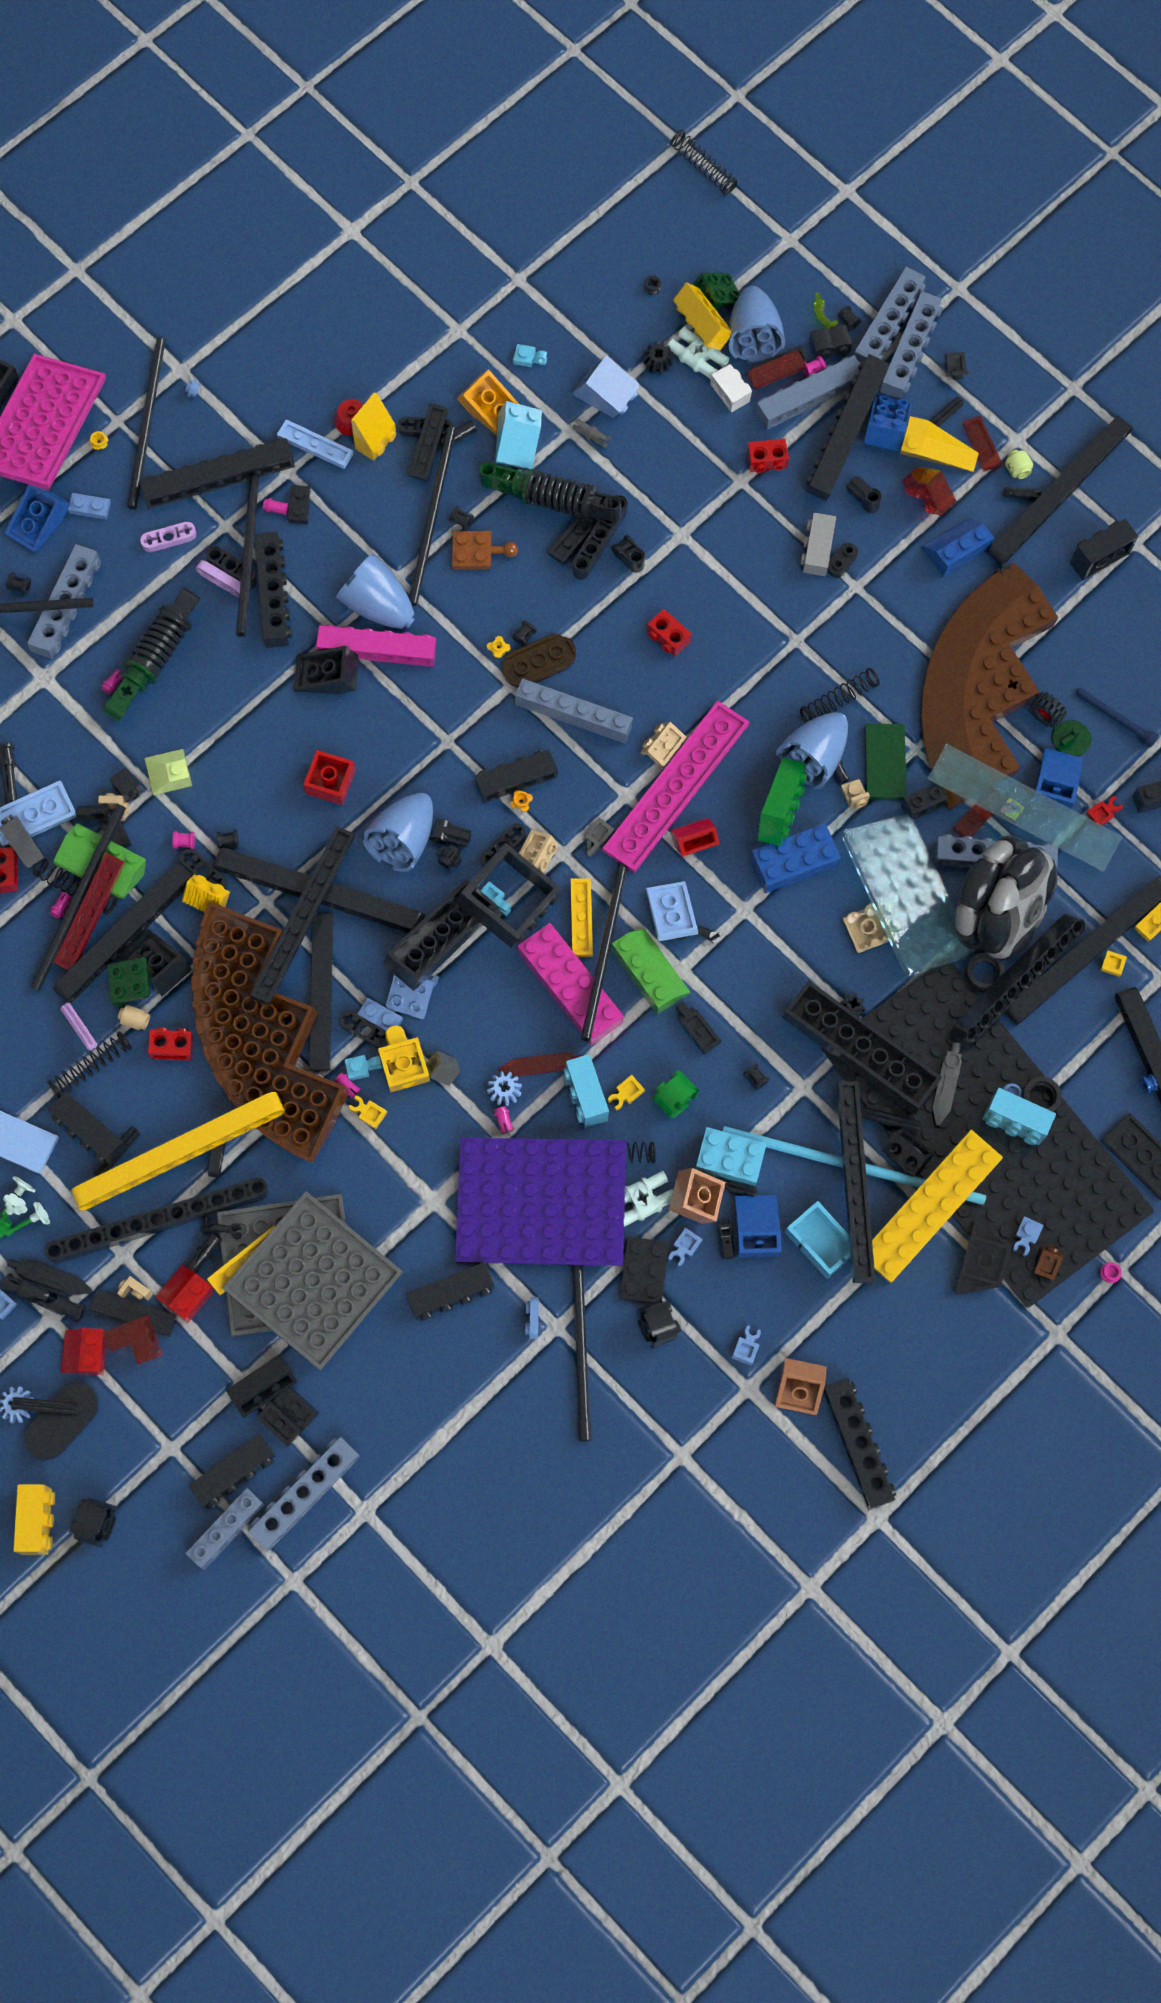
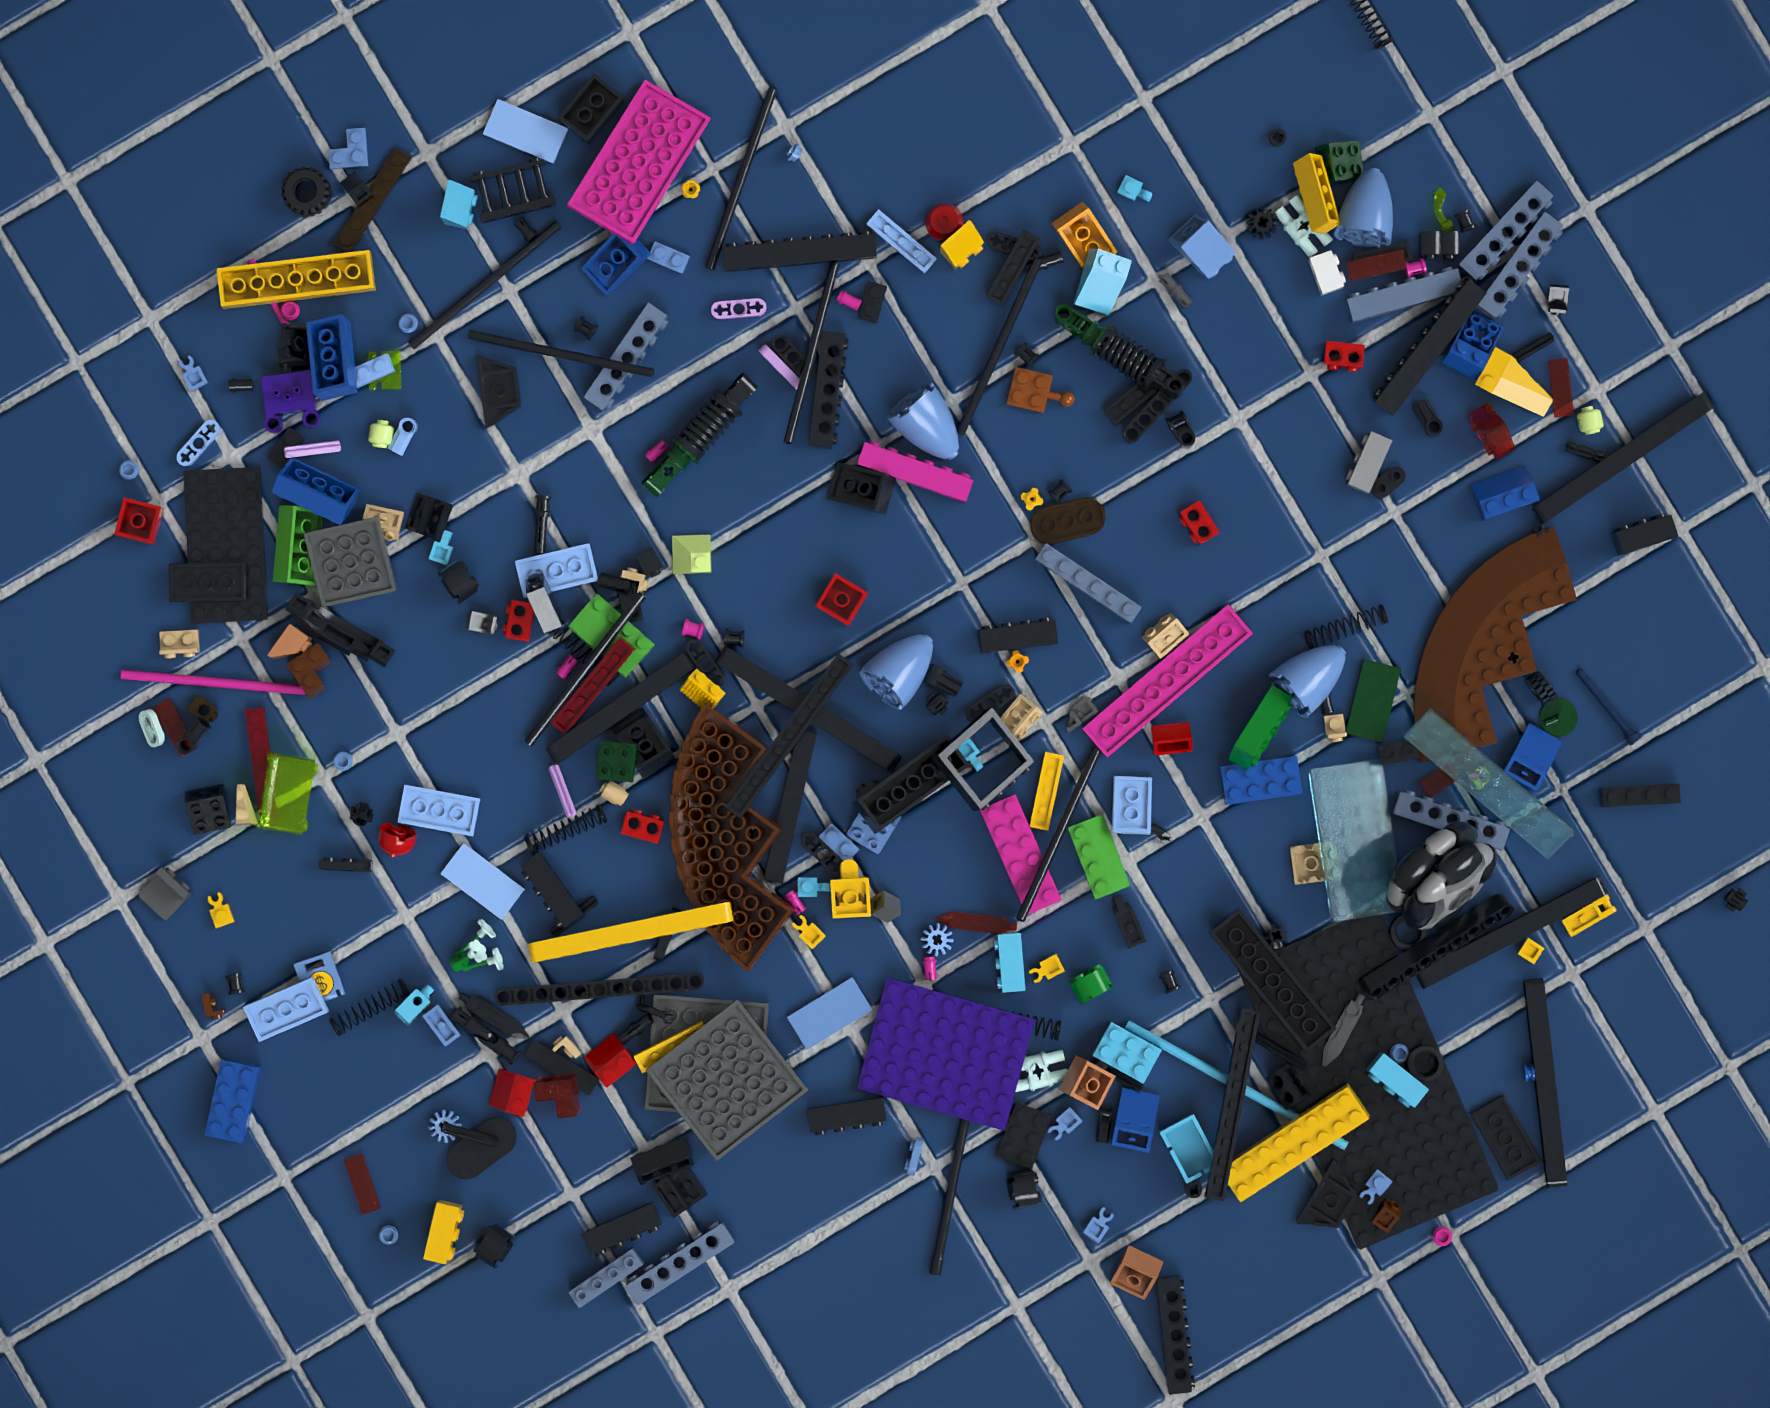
camera: 20 degrees right, 15 degrees up
(408, 1191) = (829, 1013): none -> medium blue tile
(843, 1282) = (1199, 1188): none -> black bush
(1103, 813) = (1564, 801): red plate -> none

